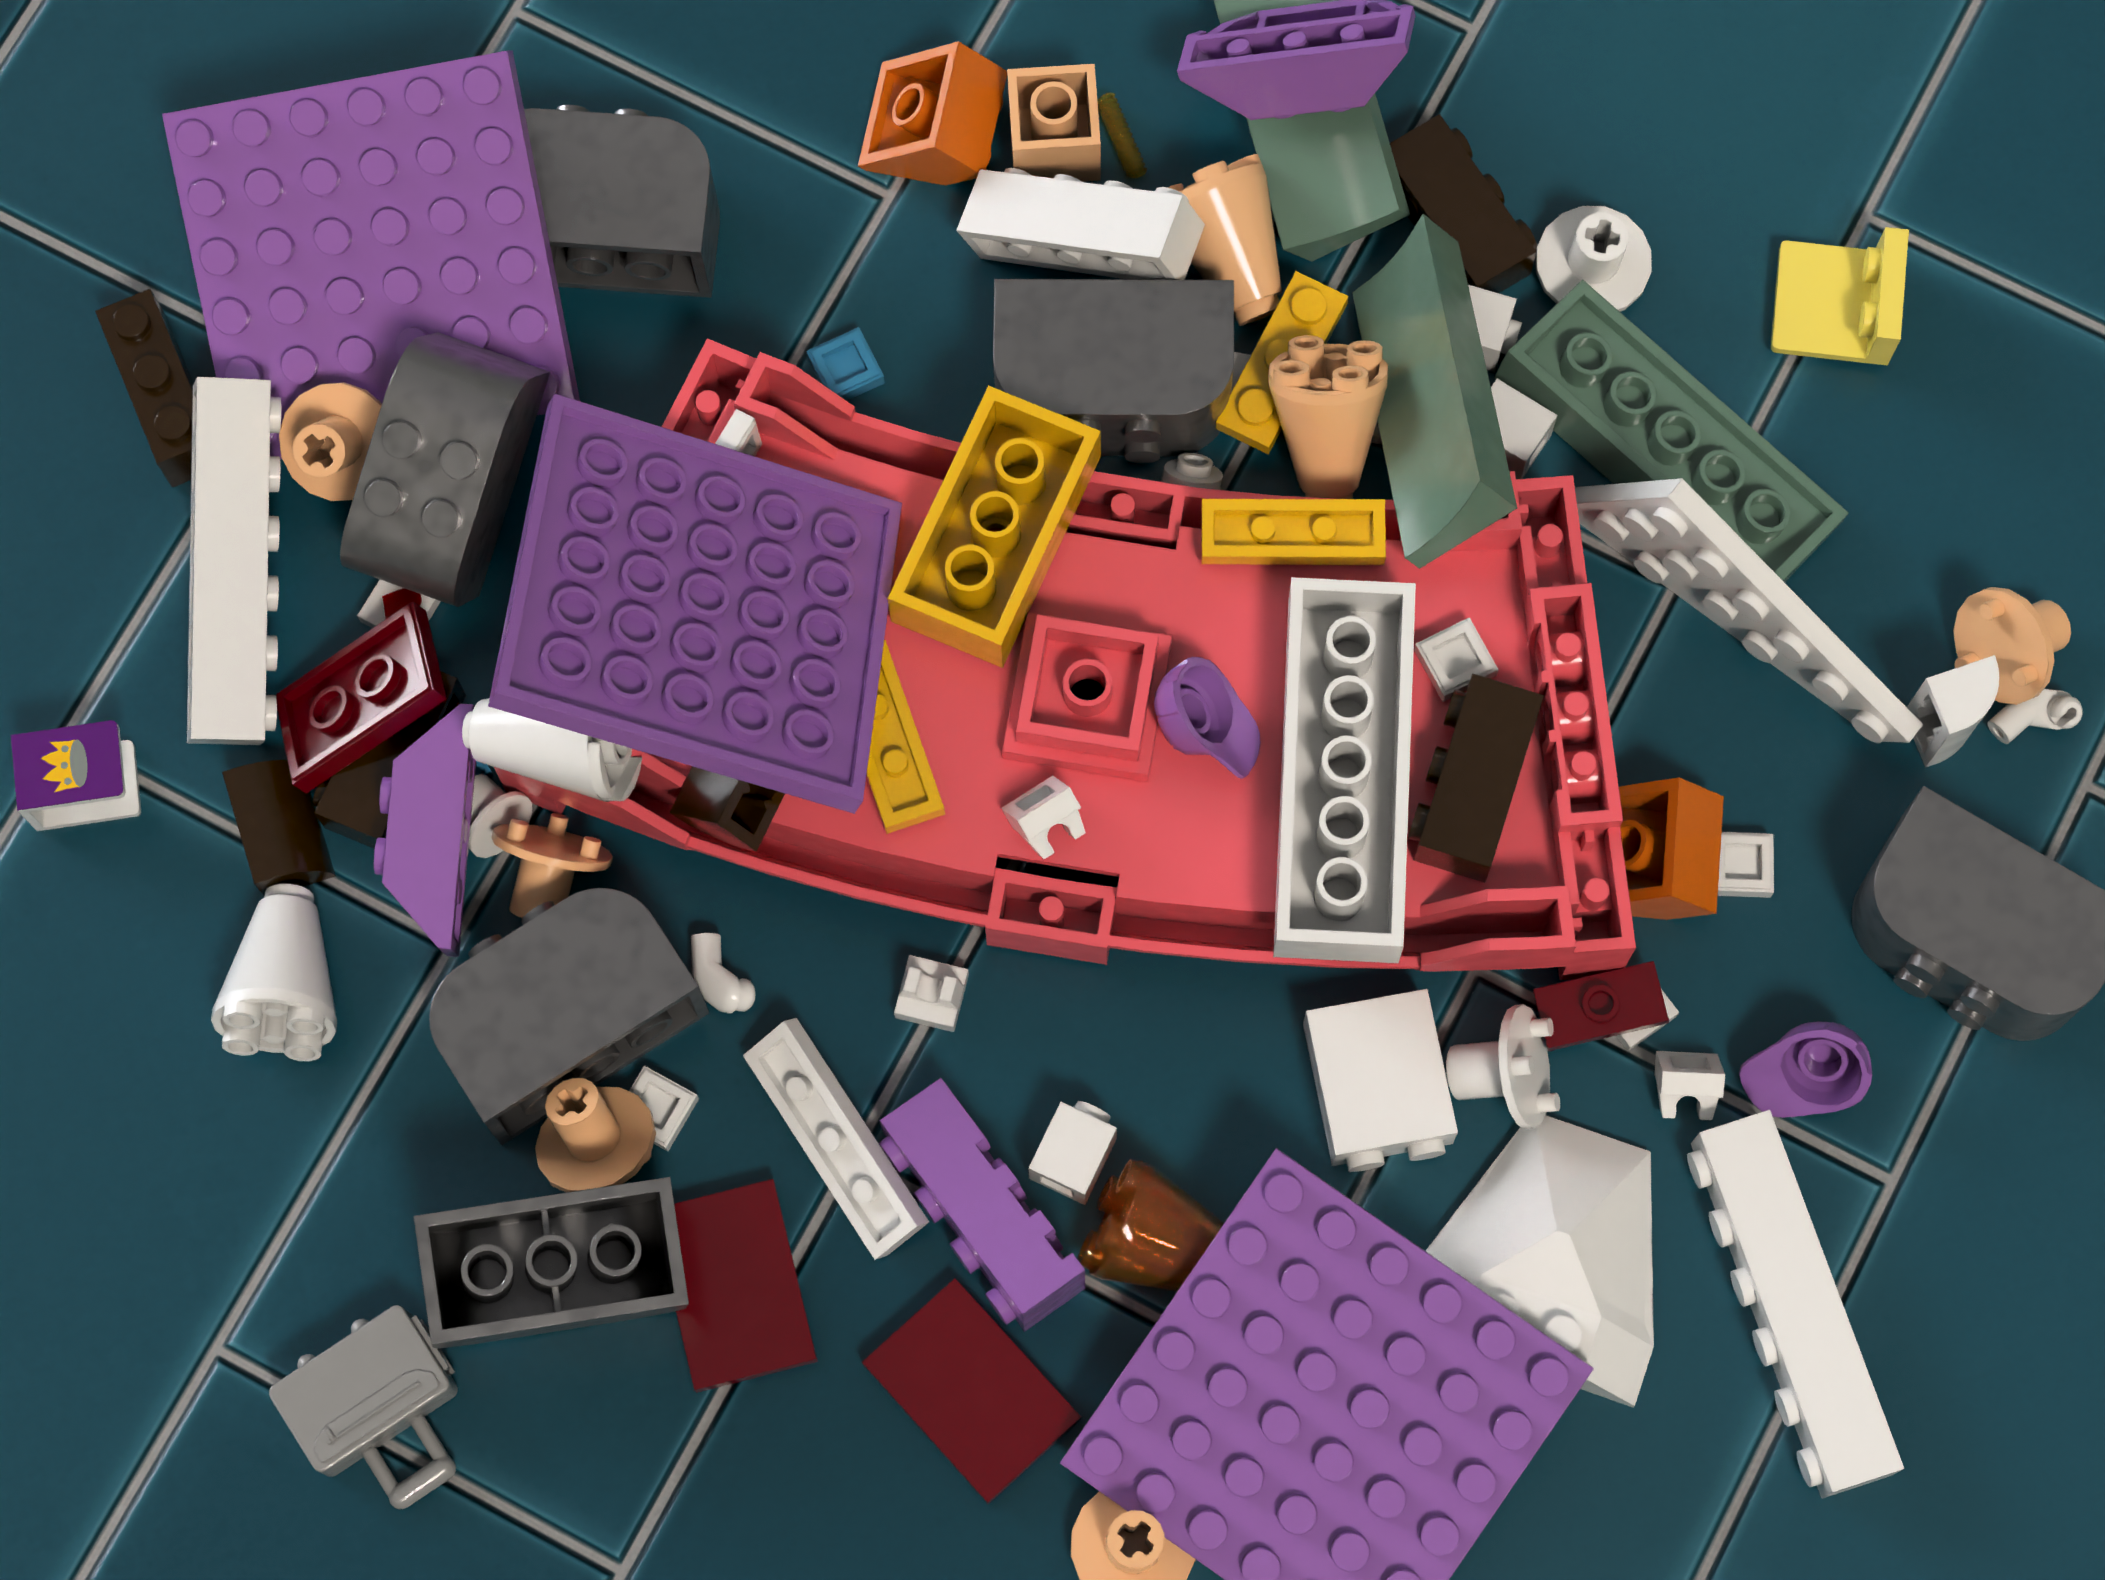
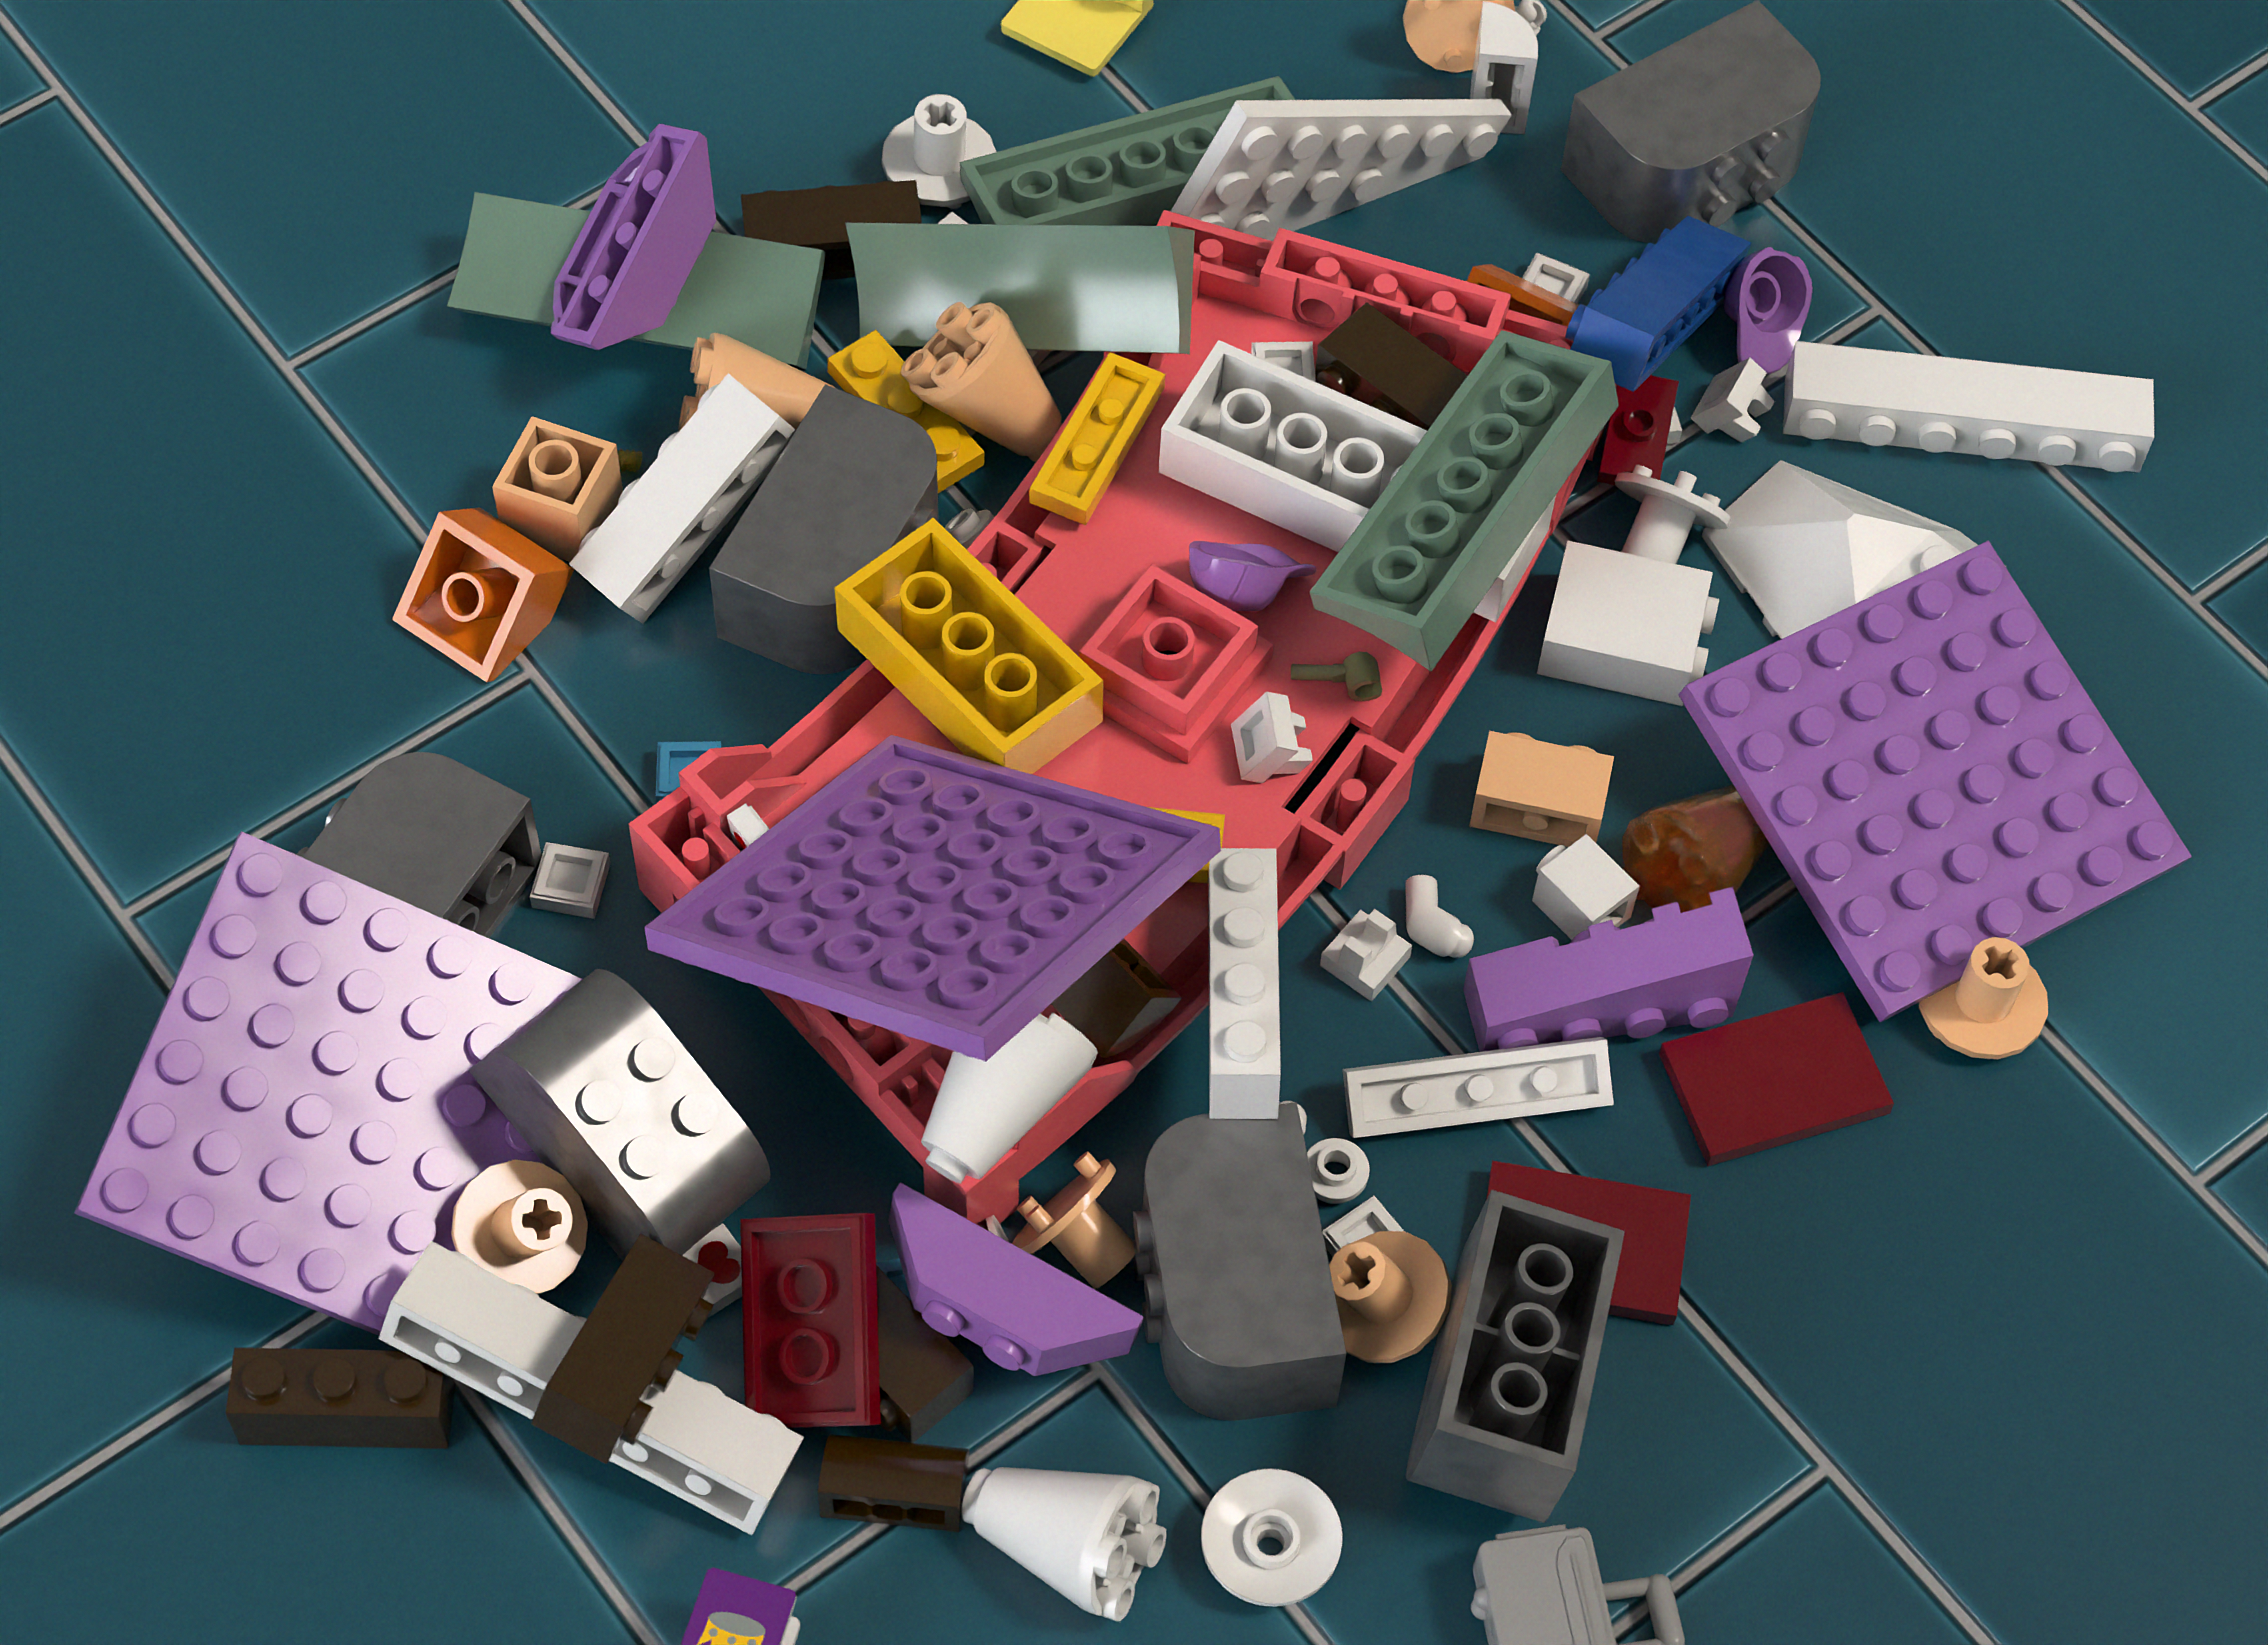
camera: 70 degrees left, 15 degrees down
(243, 569) = (626, 1350): none -> dark brown brick
(329, 1115) = (1278, 1507): none -> white dish
(699, 318) = (570, 880): none -> white tile
(715, 1070) = (1342, 1187): none -> white plate
(777, 892) = (1243, 985): none -> white brick
(983, 1035) = (1430, 924): none -> white arm
(1155, 863) = (1358, 671): none -> olive hand
(1162, 1073) = (1541, 789): none -> light nougat brick
(1345, 870) = (1468, 495): none -> sand green arch
(1707, 958) = (1657, 300): none -> blue brick

